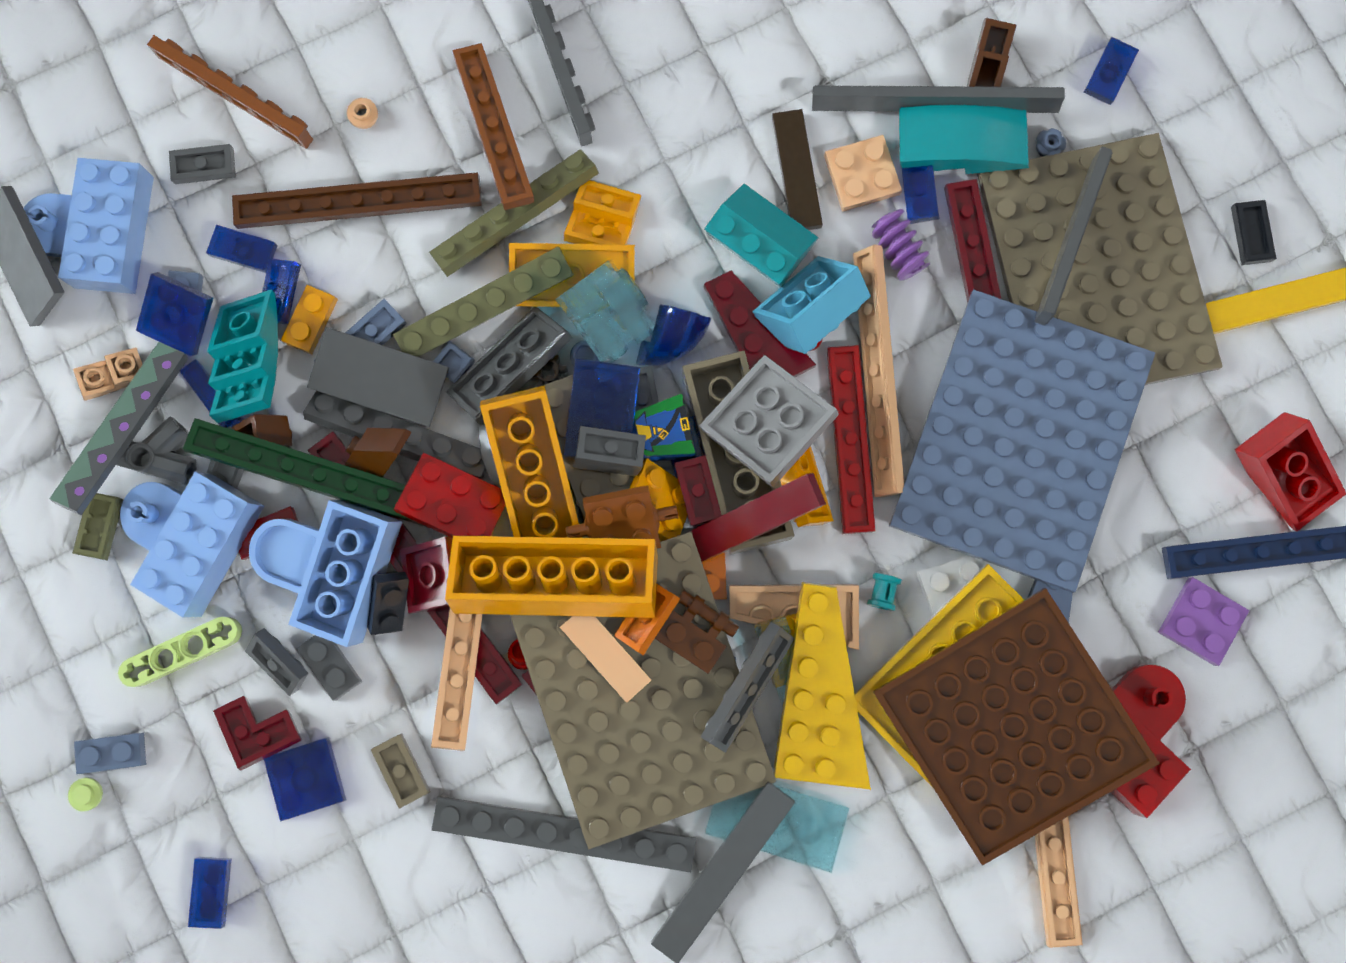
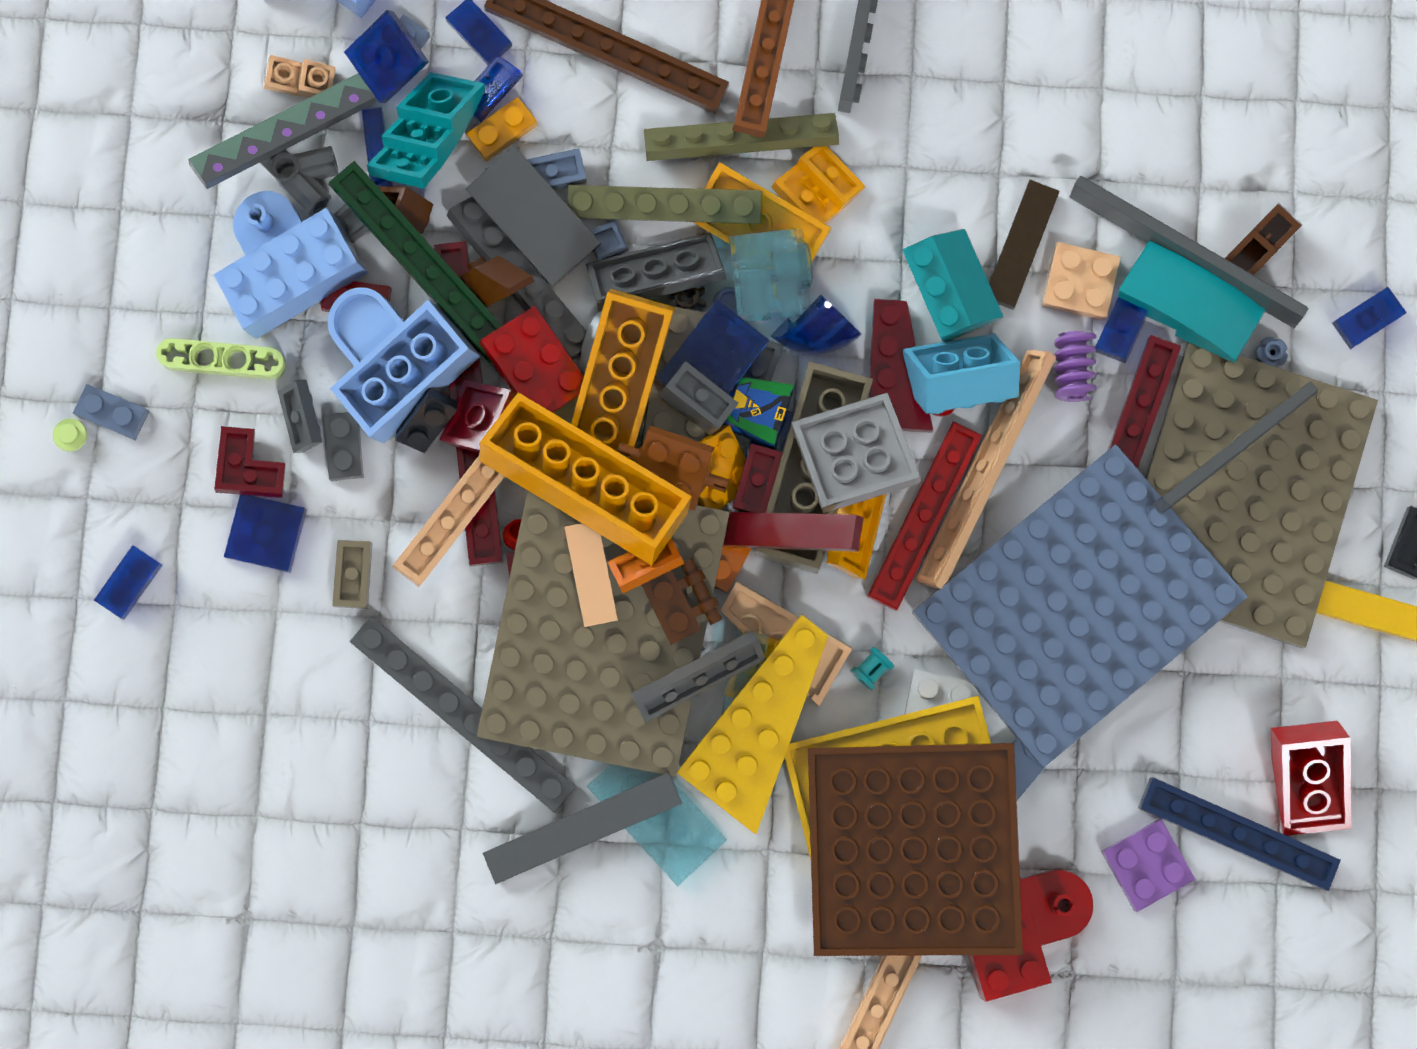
camera: 25 degrees right, 0 degrees up
(98, 527) = (212, 208): olive plate -> none

